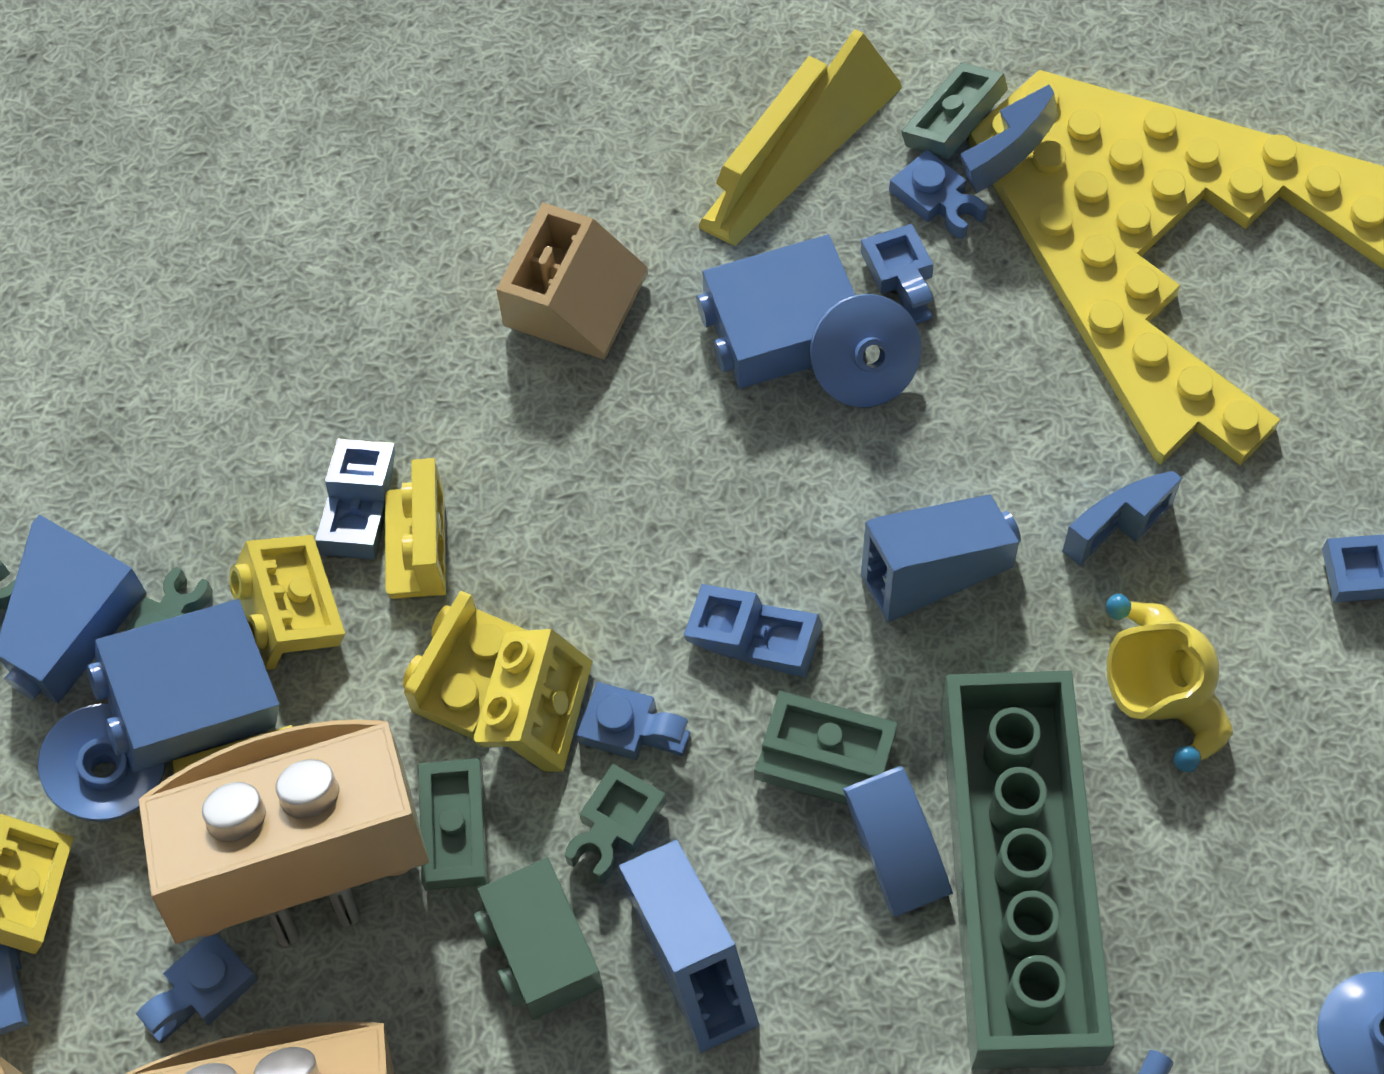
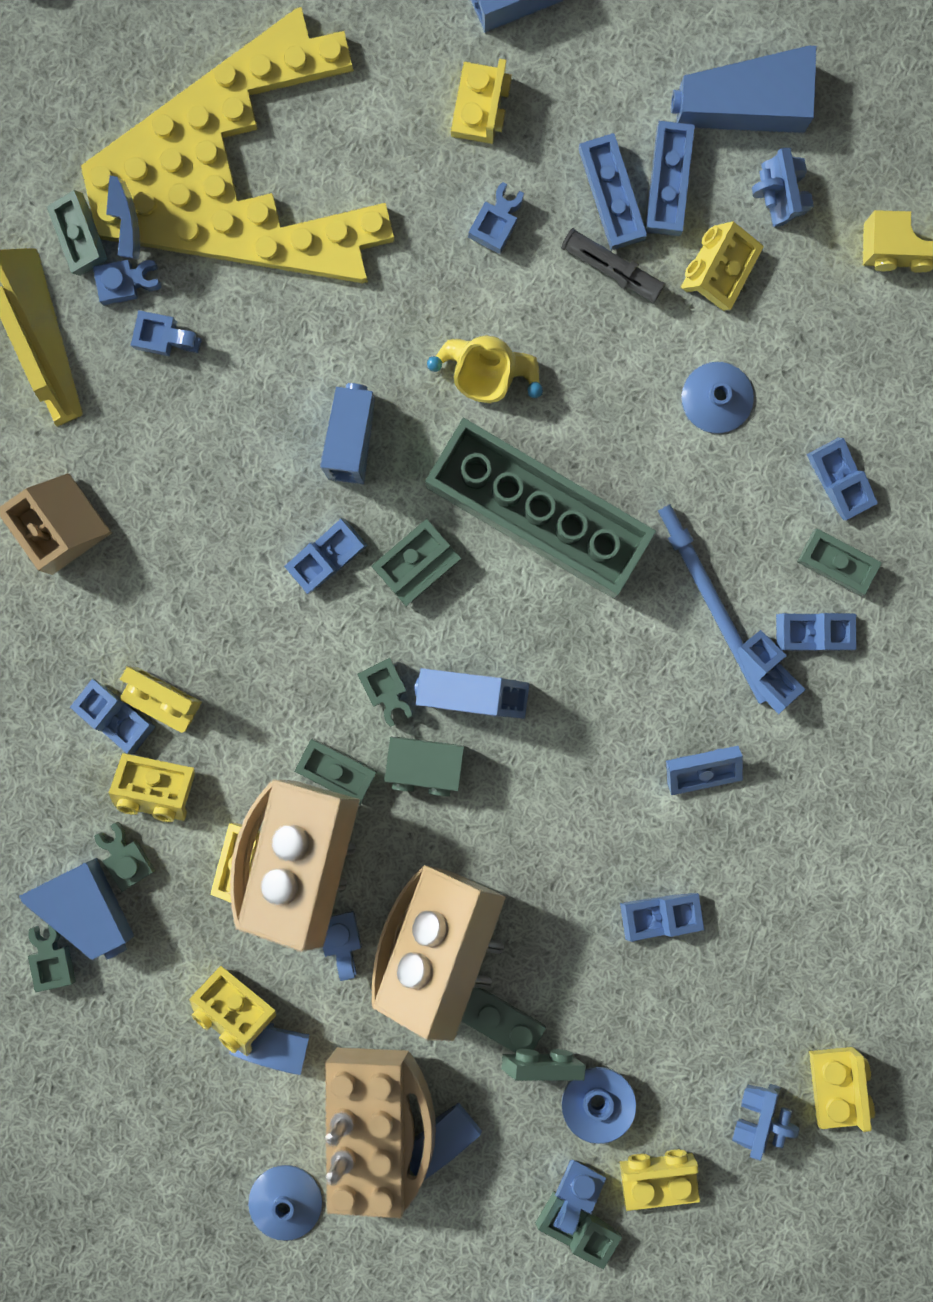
camera: 60 degrees left, 25 degrees up
(68, 762) = (169, 934): medium blue dish -> none
(183, 685) = (173, 869): medium blue brick -> none
(457, 666) = (252, 716): light yellow bracket -> none
(534, 697) = (294, 692): light yellow bracket -> none
(625, 720) = (334, 653): medium blue plate -> none
(771, 307) = (147, 418): medium blue brick -> none
(844, 336) = (191, 391): medium blue dish -> none
(898, 841) = (486, 559): medium blue slope -> none
(1128, 509) = (387, 319): medium blue slope -> none

